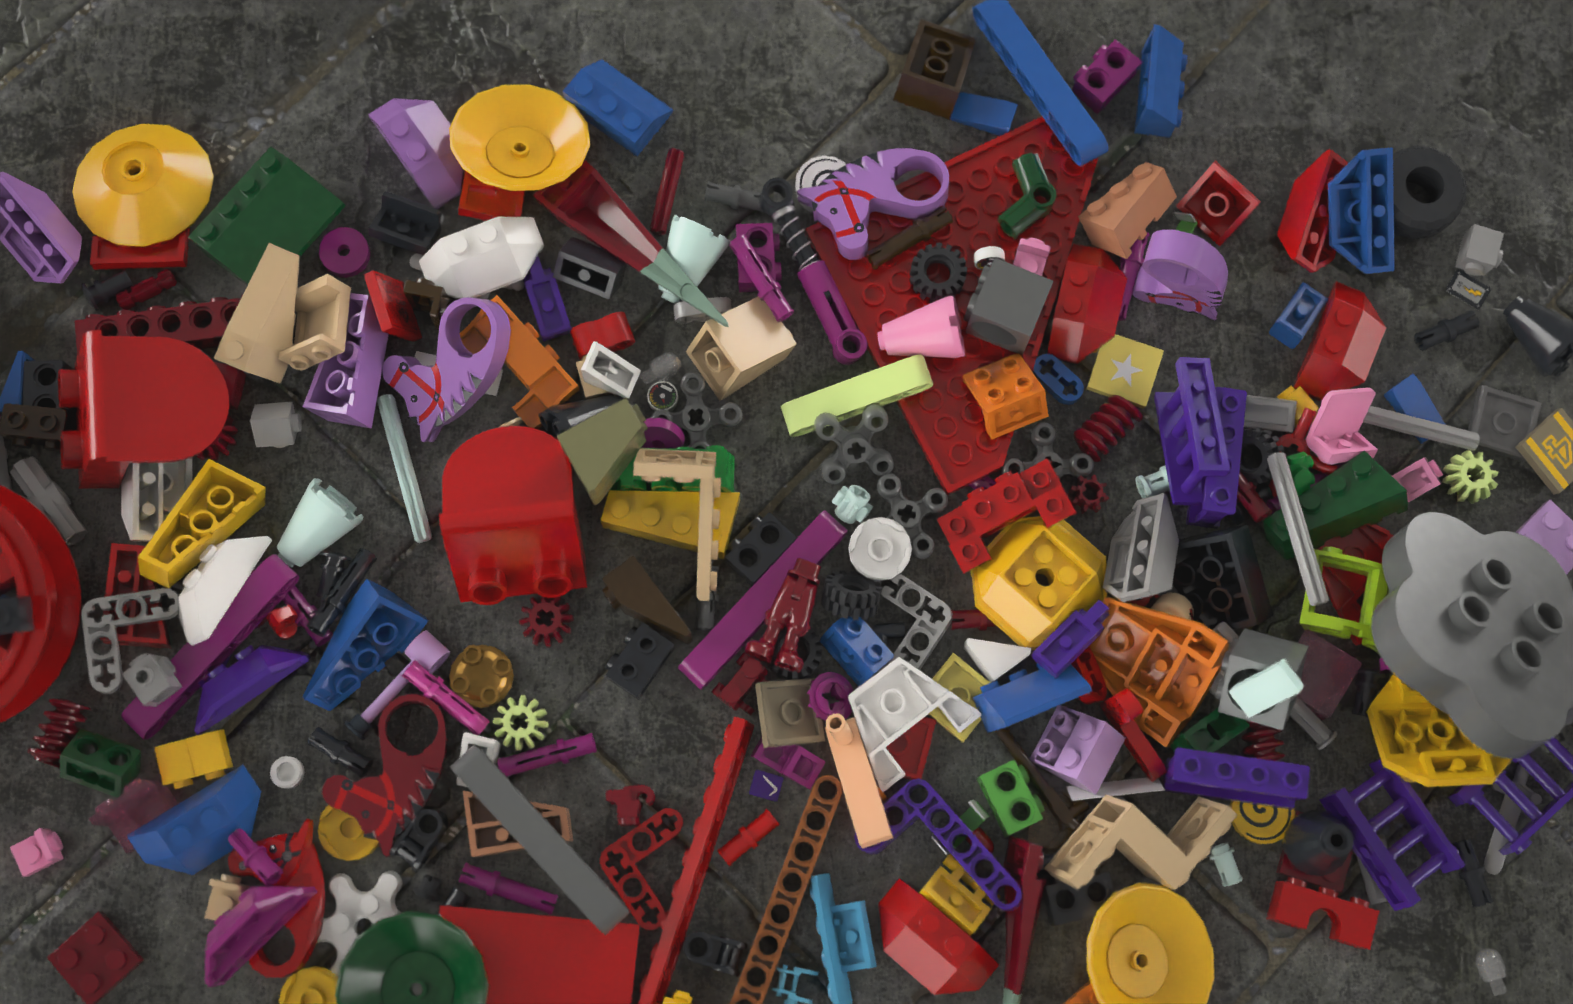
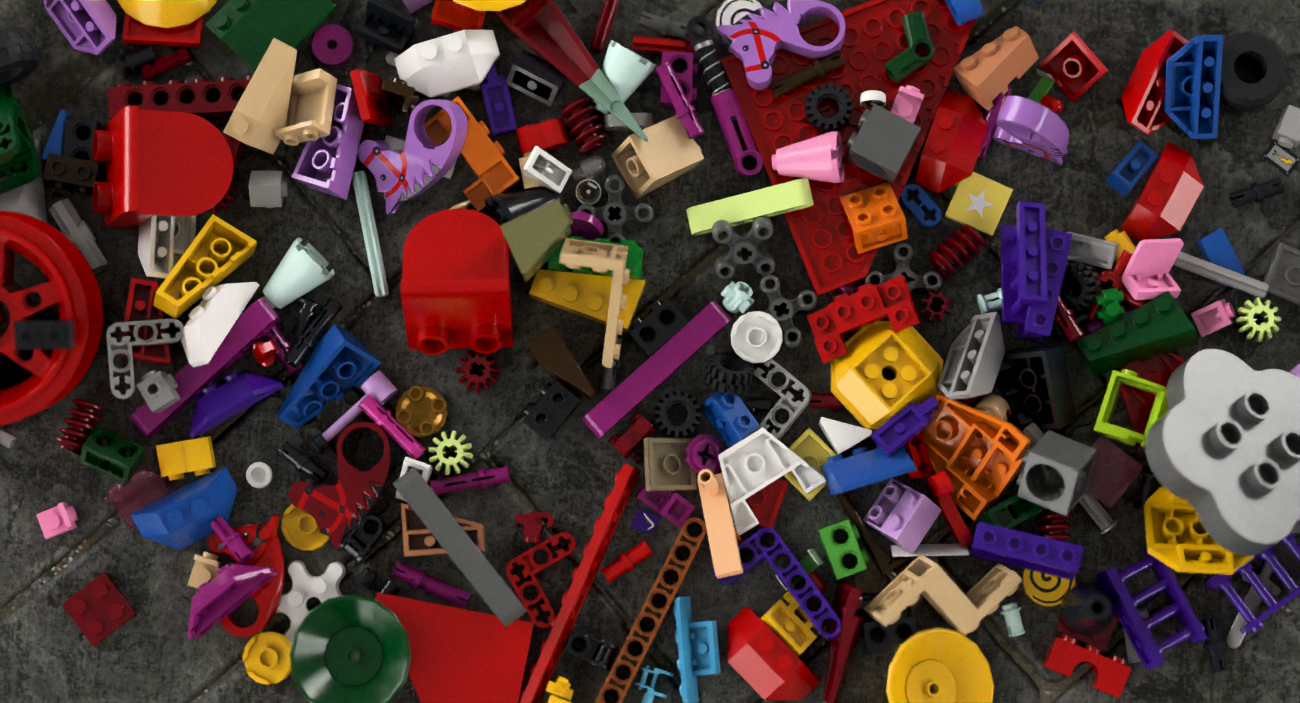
camera: 10 degrees right, 5 degrees up
(649, 319) = (583, 125): none -> dark red piece
(729, 219) = (657, 45): none -> red axle
(792, 610) = (677, 380): dark red piece -> none
(1266, 688) = (1054, 481): light aqua tile -> none
(1297, 529) = (1101, 352): light grey axle -> none

